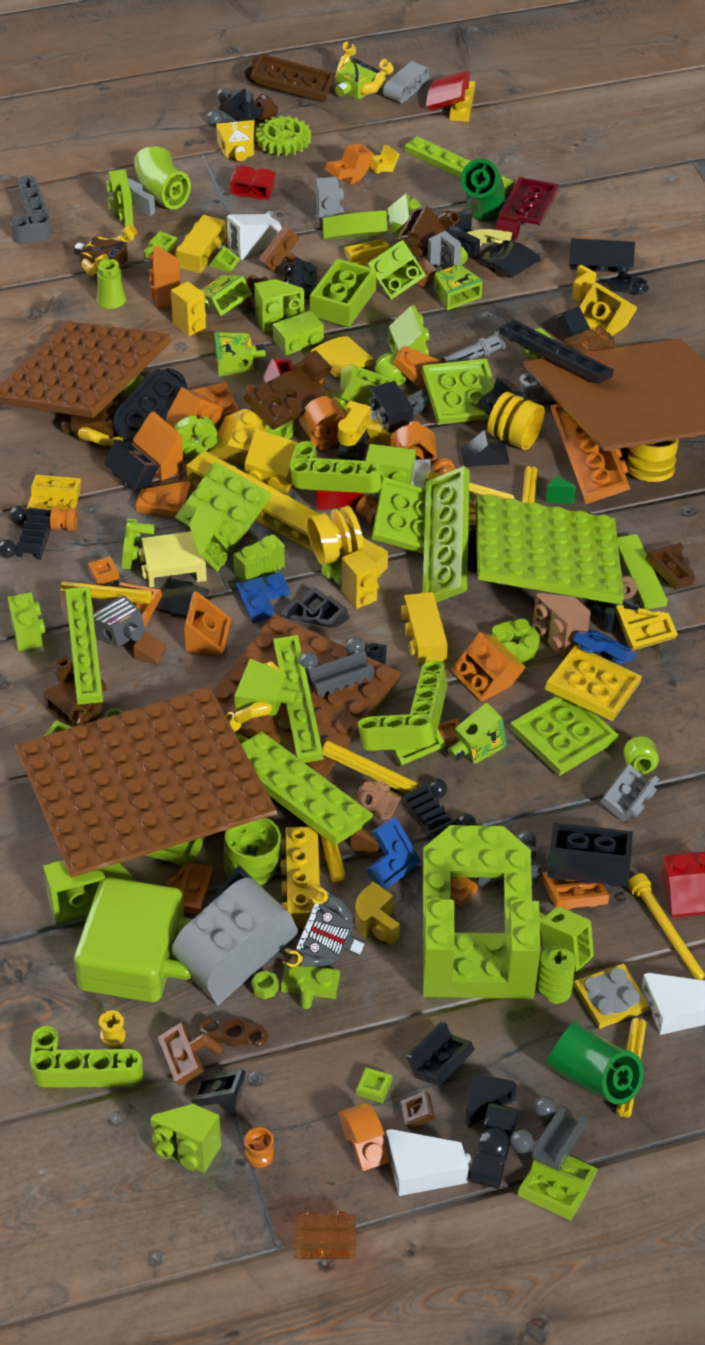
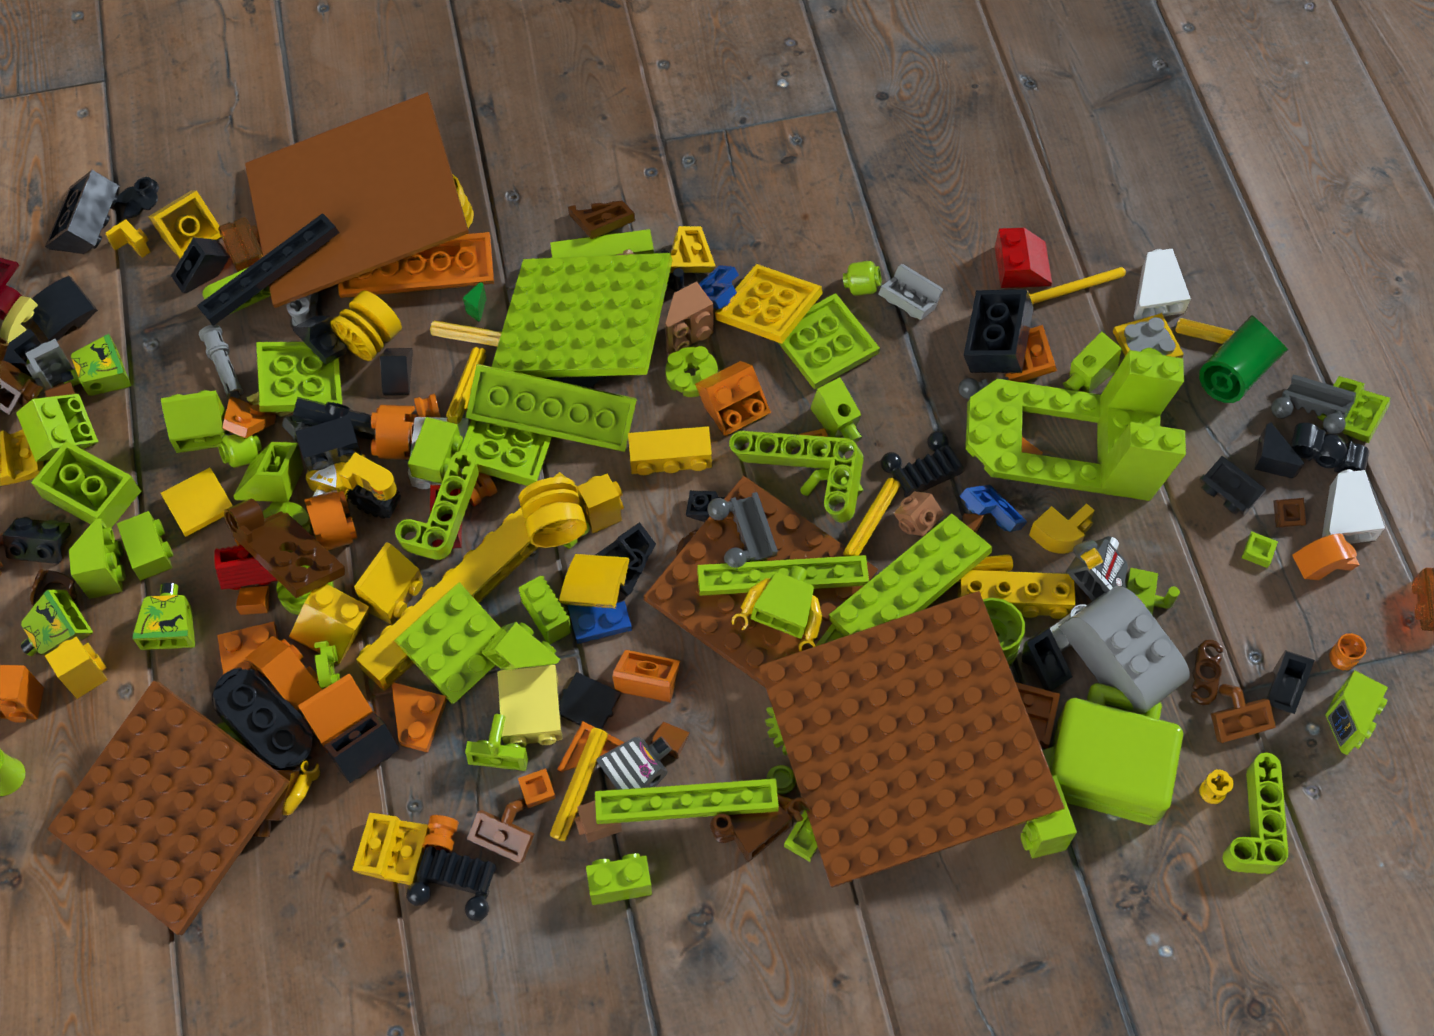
camera: 85 degrees left, 15 degrees up
(63, 551) = (500, 833): none -> plate
(287, 581) = (594, 581): none -> yellow slope
(424, 409) = (315, 413): none -> black piece

